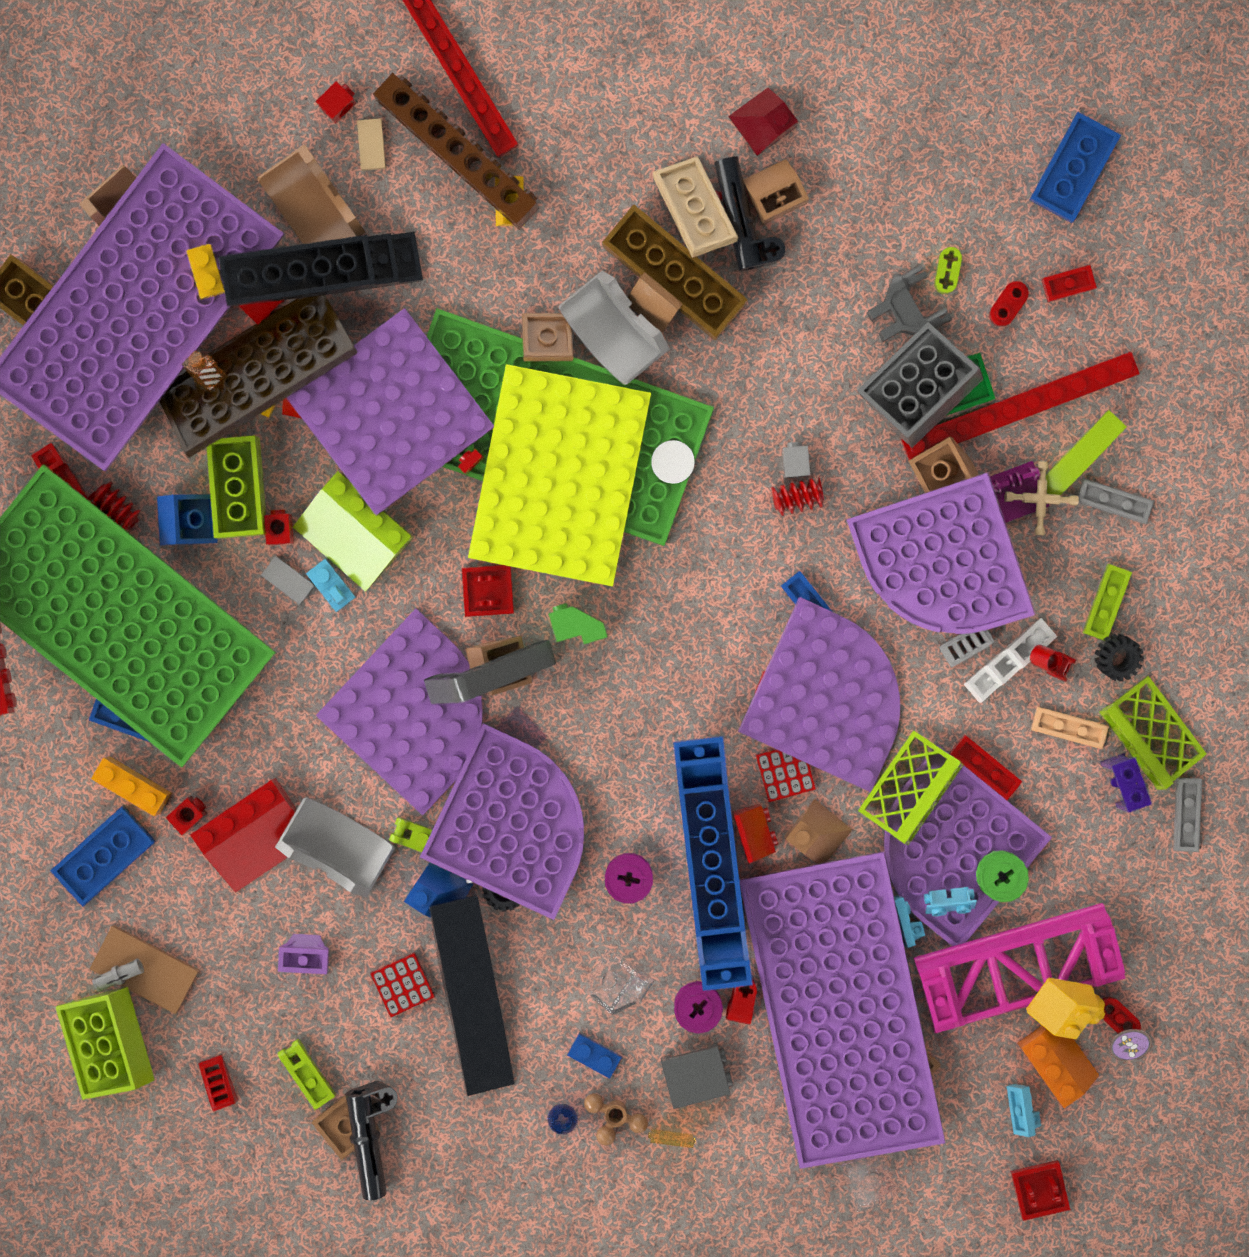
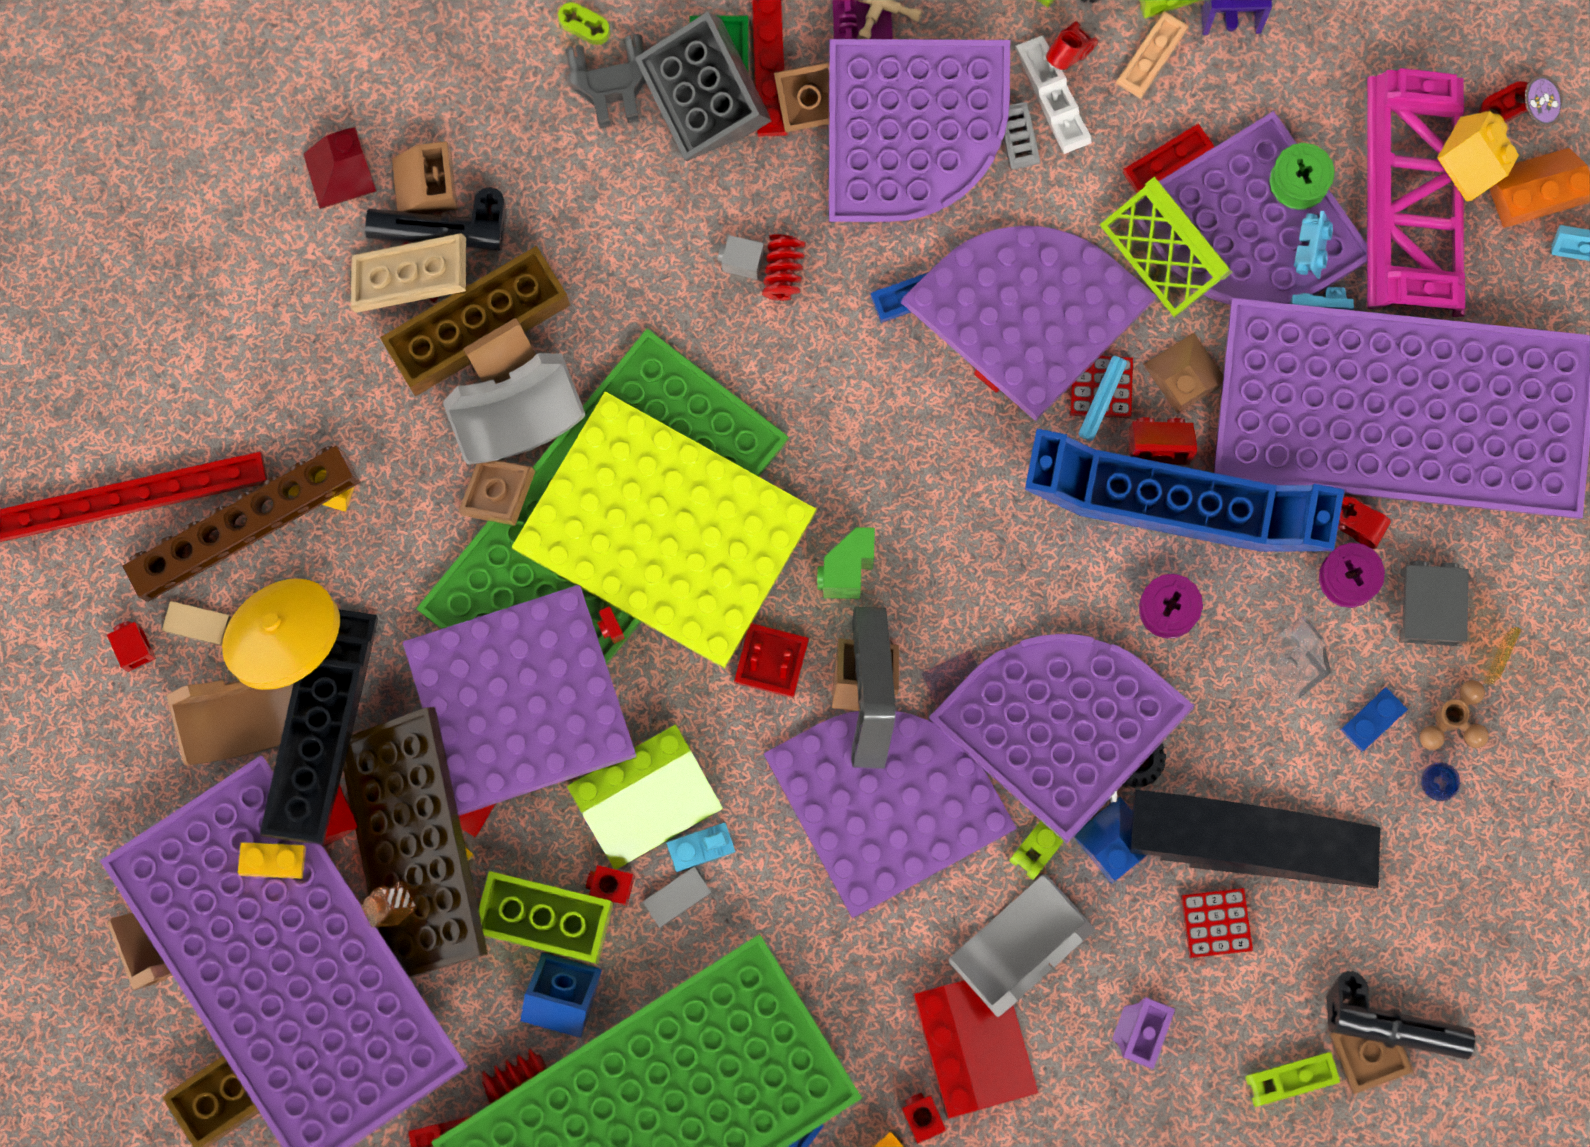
camera: 70 degrees left, 10 degrees down
(380, 213) = (281, 634): none -> yellow dish
(673, 461) = (694, 394): white sticker -> none
(774, 776) = (1102, 398): none -> medium azure axle

